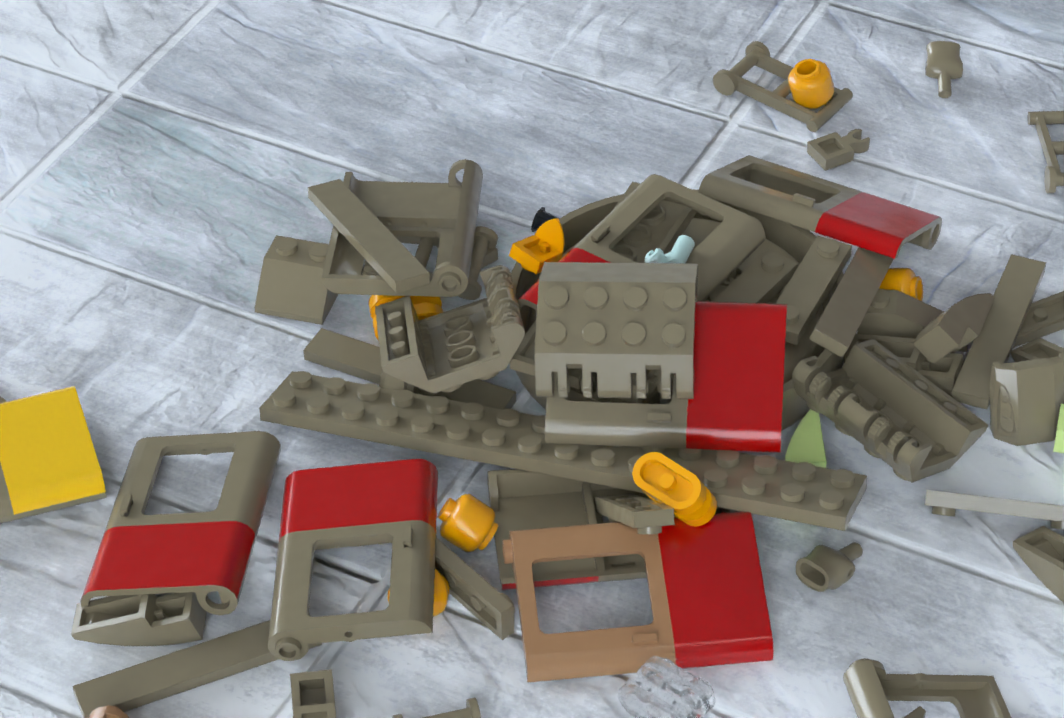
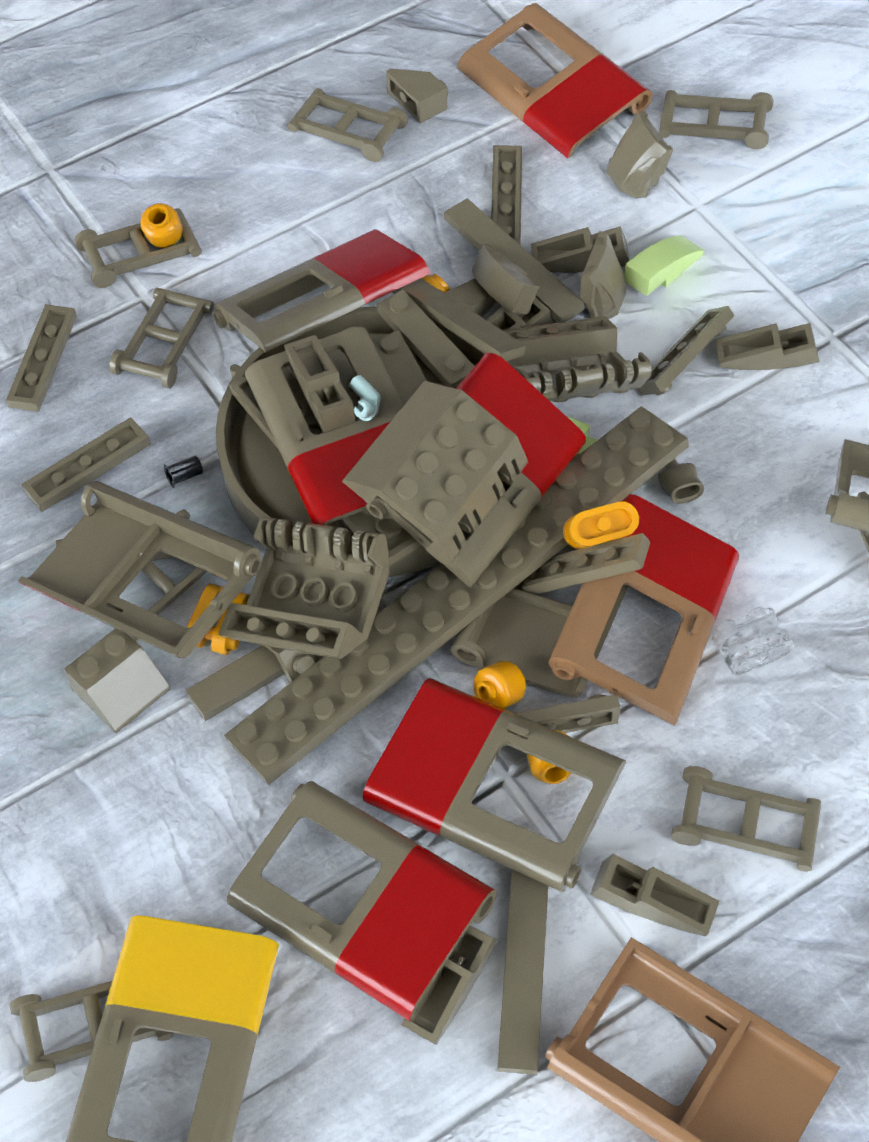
camera: 60 degrees left, 15 degrees up
(369, 236) = (143, 596): dark tan tile -> none
(513, 165) = (86, 464): none -> dark tan plate
(544, 246) = (262, 482): light orange plate -> none
(602, 88) = (41, 358): none -> dark tan plate
(639, 136) = (123, 360): none -> dark tan piece
(663, 219) = (320, 383): none -> dark tan slope
(835, 150) = (239, 252): dark tan plate -> none
(943, 64) = (199, 141): dark tan piece -> none

